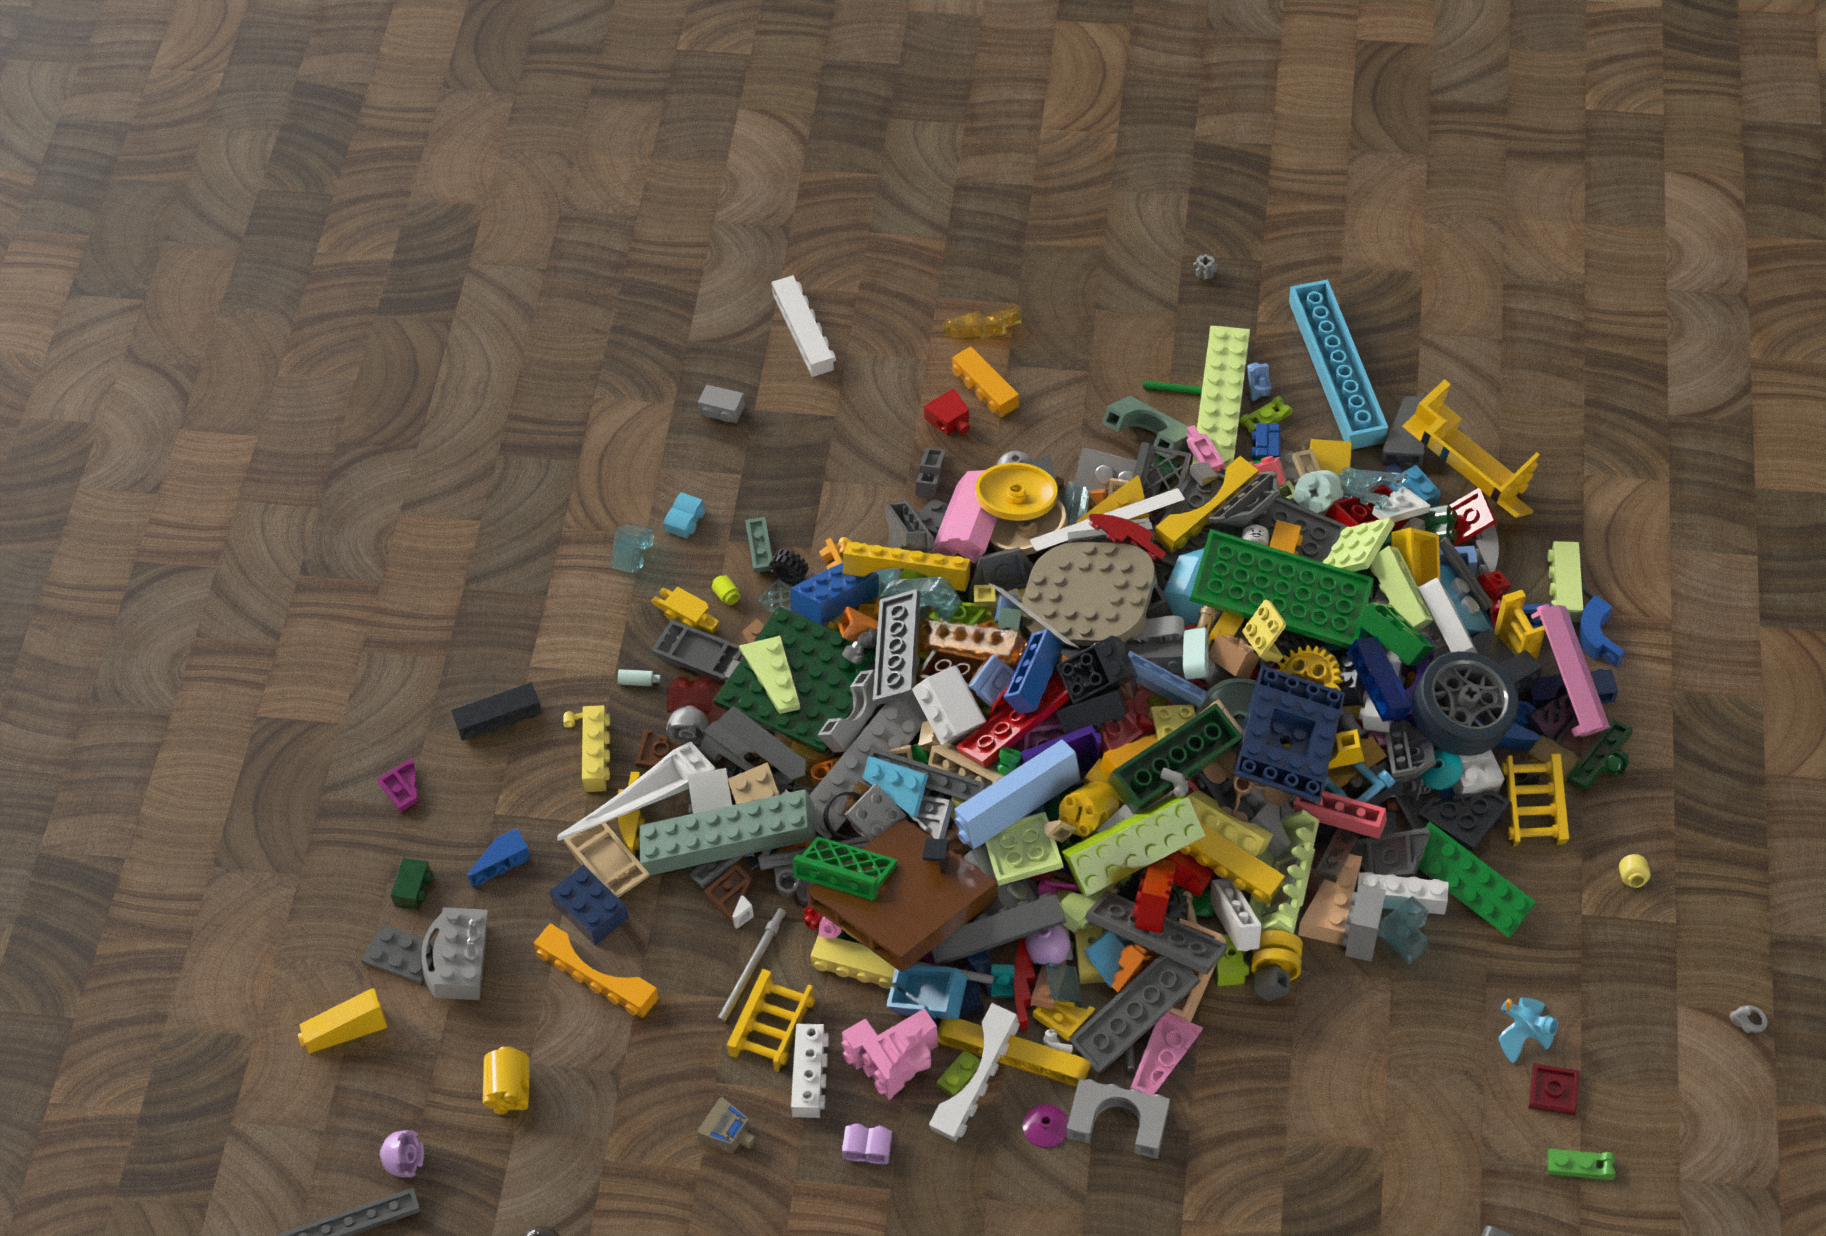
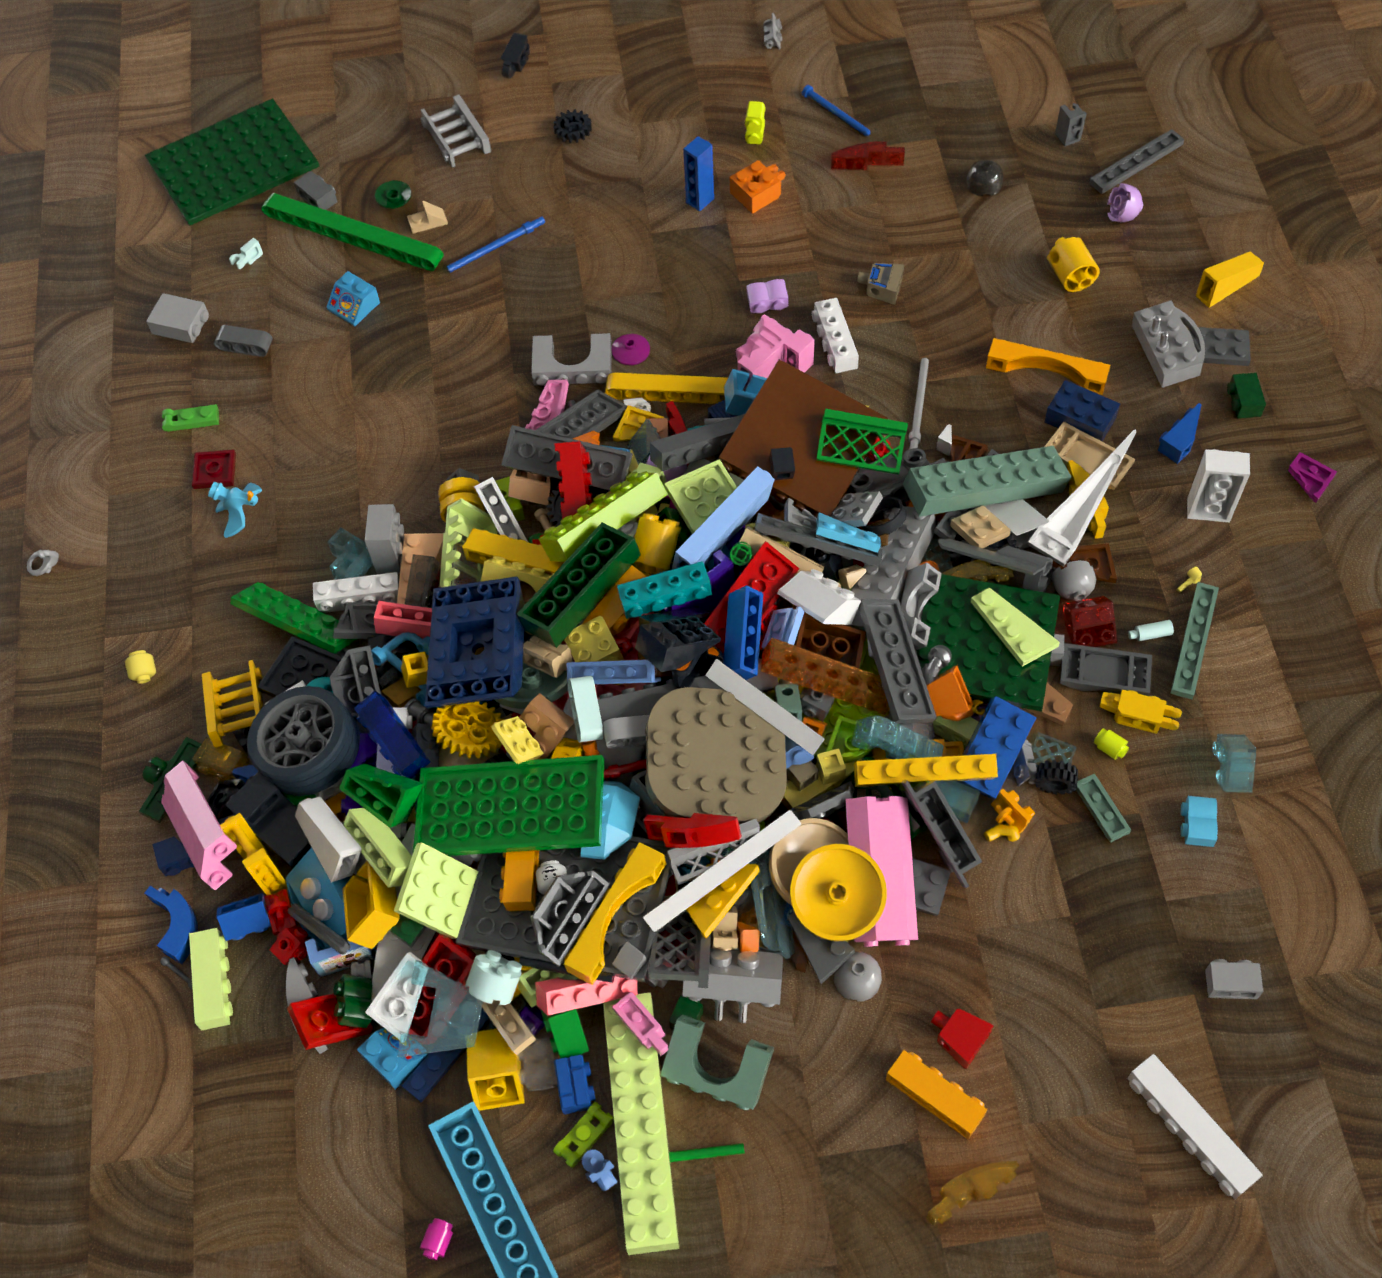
camera: 165 degrees right, 5 degrees up
(496, 711) = (1265, 557): black brick -> none
(511, 761) = (1218, 485): none -> white brick
(594, 748) = (1154, 547): light yellow brick -> none
(603, 660) = (1194, 640): none -> sand green plate
(756, 1004) = (898, 372): yellow fence -> none
(930, 473) = (953, 948): dark grey slope -> none
(952, 1114) = (704, 329): white arch -> none
(959, 1073) = (713, 363): lime plate -> none
(1059, 830) = (676, 509): tan slope -> none
(1096, 730) = (664, 590): none -> teal brick
(1178, 781) = (567, 547): light grey arm -> none
(1392, 373) = (436, 1239): none -> dark pink brick
(1401, 445) = (407, 1146): dark grey slope -> none
(1438, 430) = (321, 1091): yellow panel -> none

